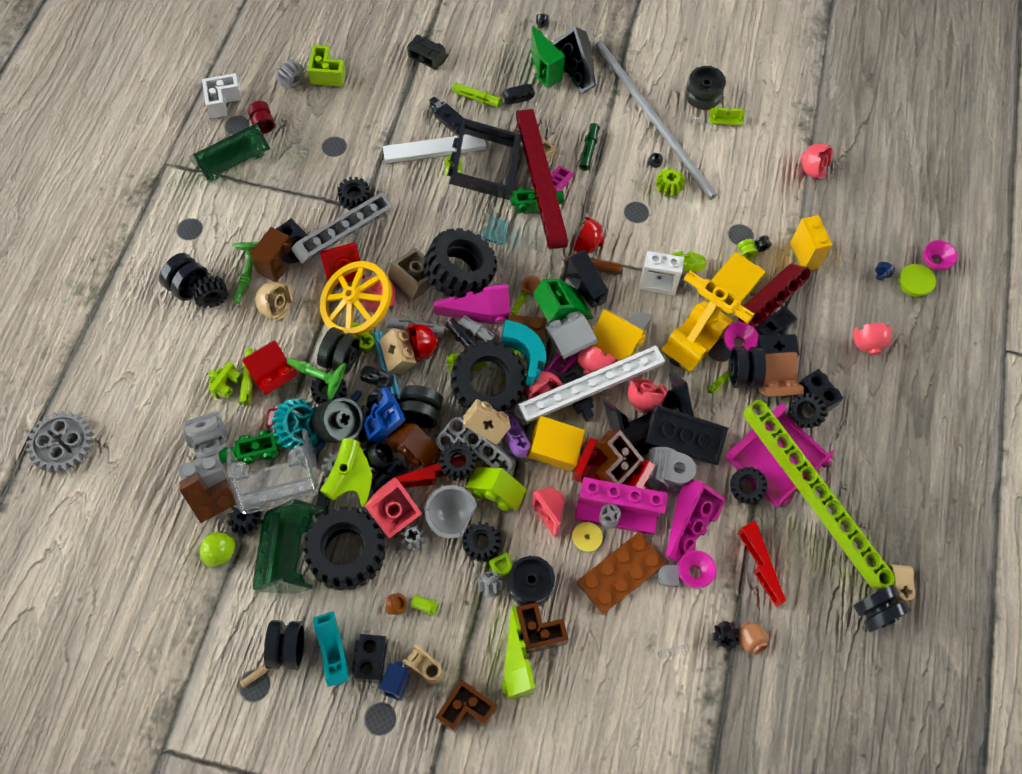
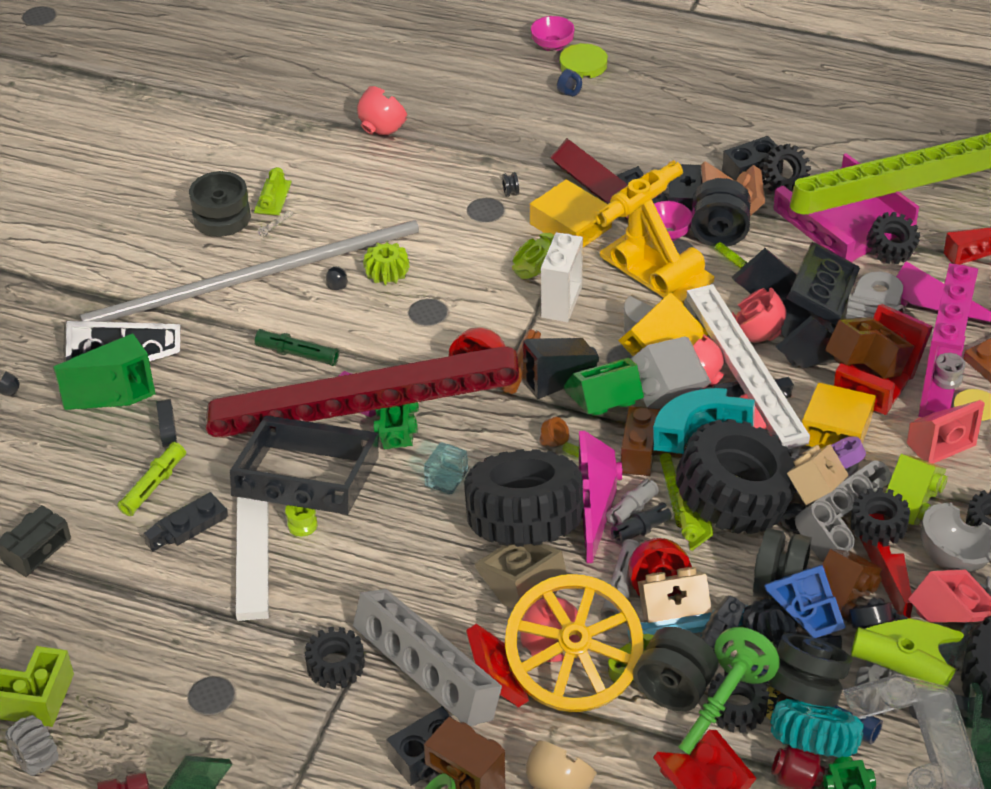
camera: 80 degrees left, 20 degrees down
(747, 249) = (519, 198): lime wheel -> none
(811, 242) = (528, 129): yellow brick -> none
(873, 337) = (678, 101): coral cylinder -> none

